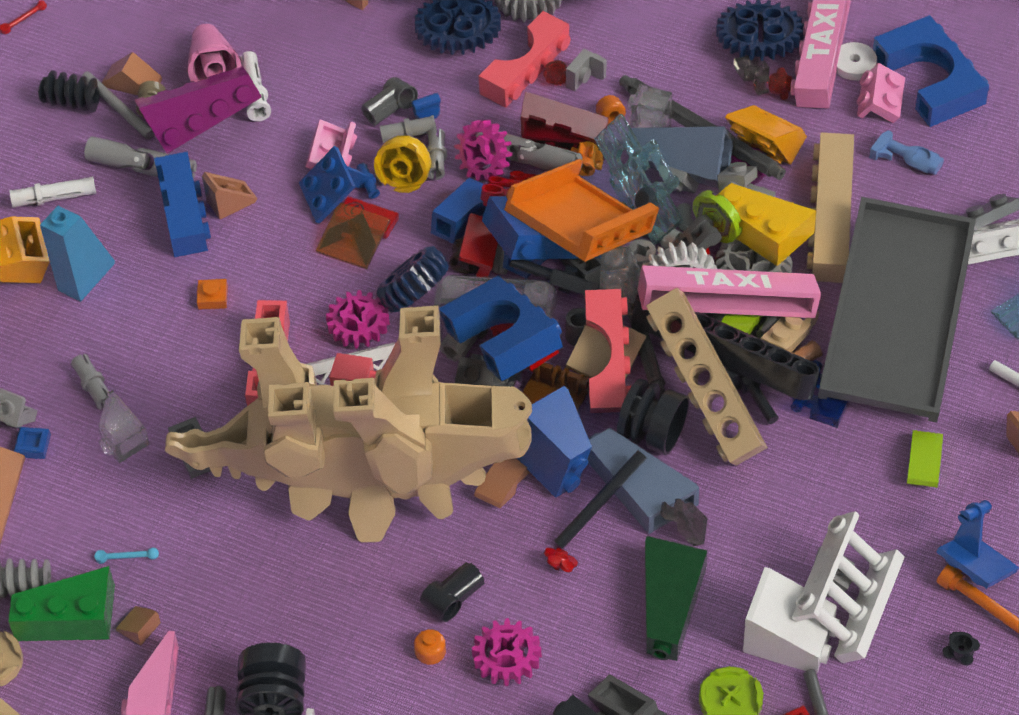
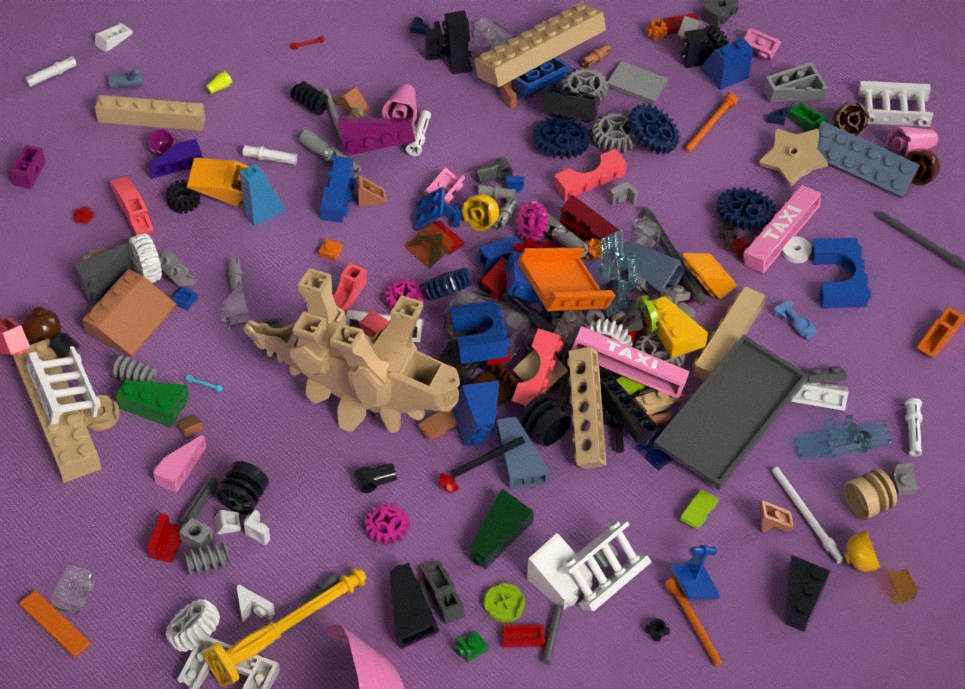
camera: 20 degrees right, 0 degrees up
(429, 646) = (346, 503): orange piece -> none
(555, 72) = (603, 189): clear red plate -> none
(610, 107) = (625, 223): orange piece -> none
(689, 519) = (535, 490): clear smoke plate -> none
(881, 93) = (800, 276): bright pink bracket -> none

